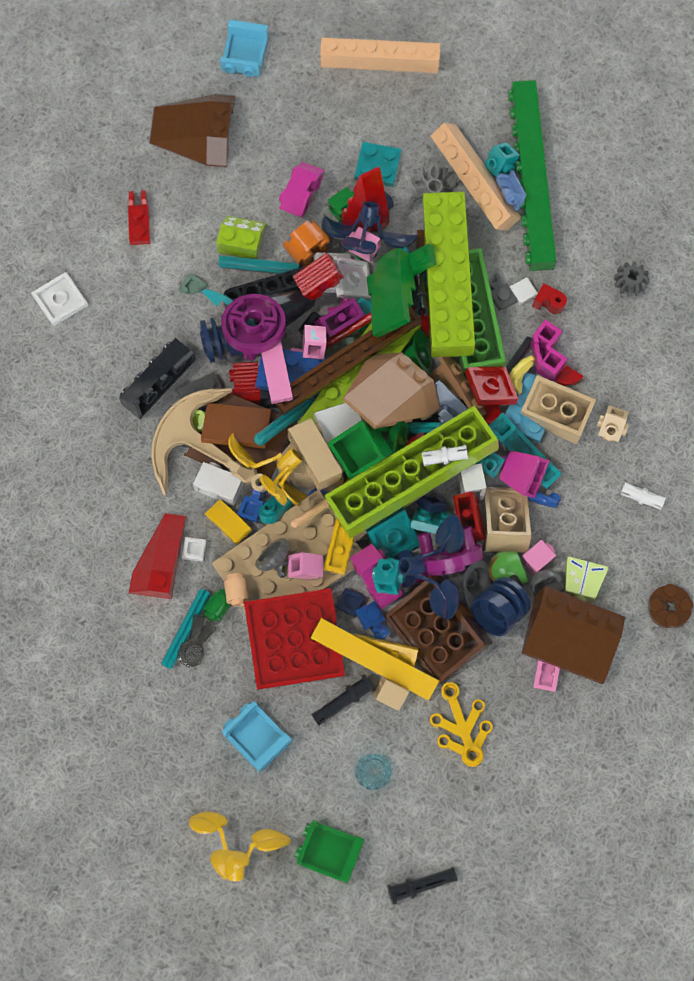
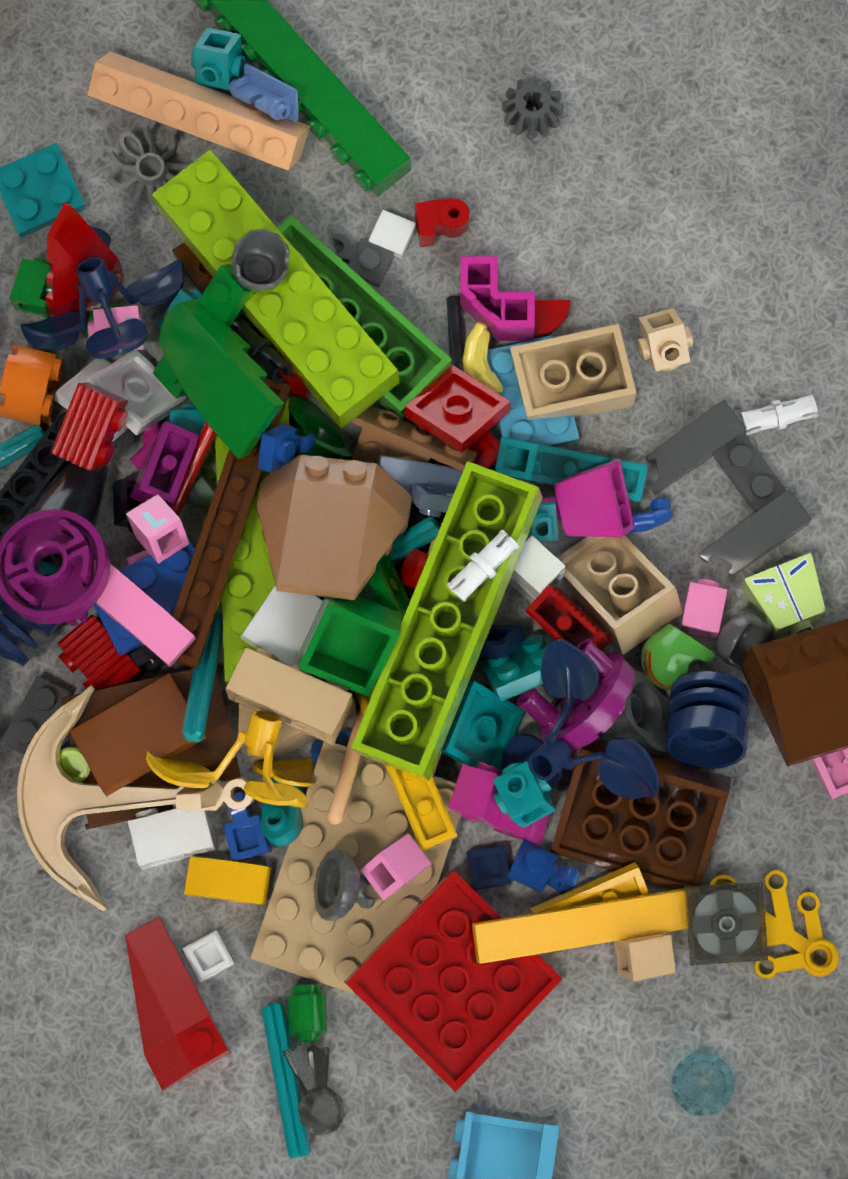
camera: 35 degrees left, 5 degrees up
(236, 589) = (319, 973): light nougat brick -> none
(352, 694) = (591, 997): black pin -> none
(397, 342) = (280, 445): none -> blue plate
(439, 705) = (726, 923): none -> clear smoke piece
(447, 252) = (260, 260): none -> dark grey hair
(607, 538) = (775, 509): none -> dark grey wedge

